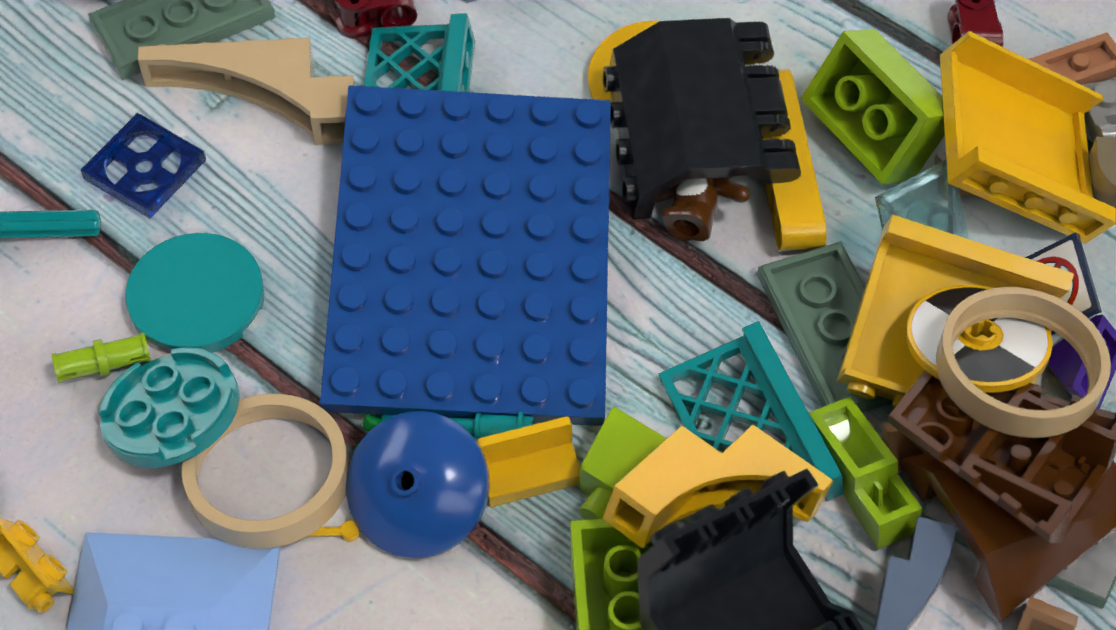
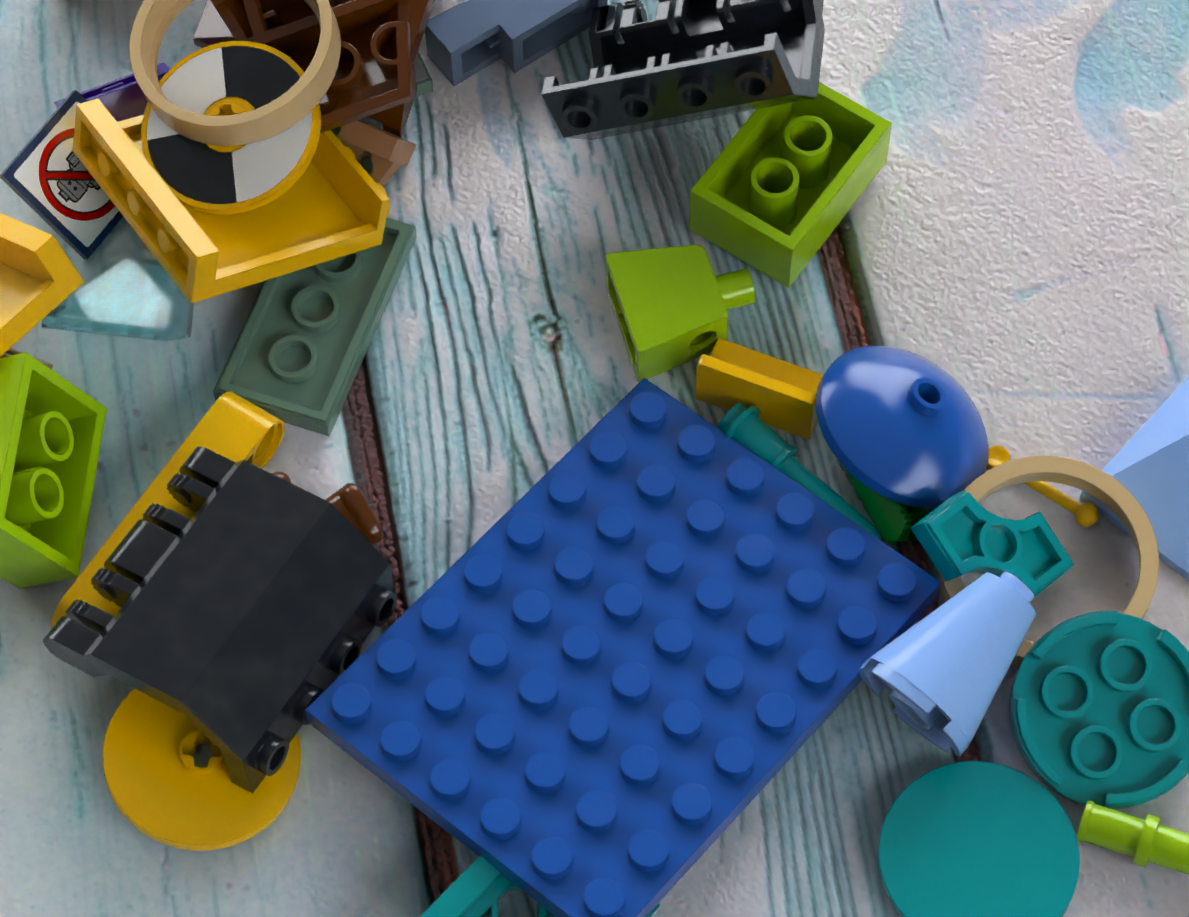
camera: 140 degrees left, 5 degrees up
(275, 342) = (954, 660): none -> light blue cone
(318, 429) = (969, 539): none -> teal tile
(691, 474) = (637, 198): yellow arch -> none
(771, 384) = (456, 265): teal fence -> none
(868, 473) = (442, 148): lime slope -> none

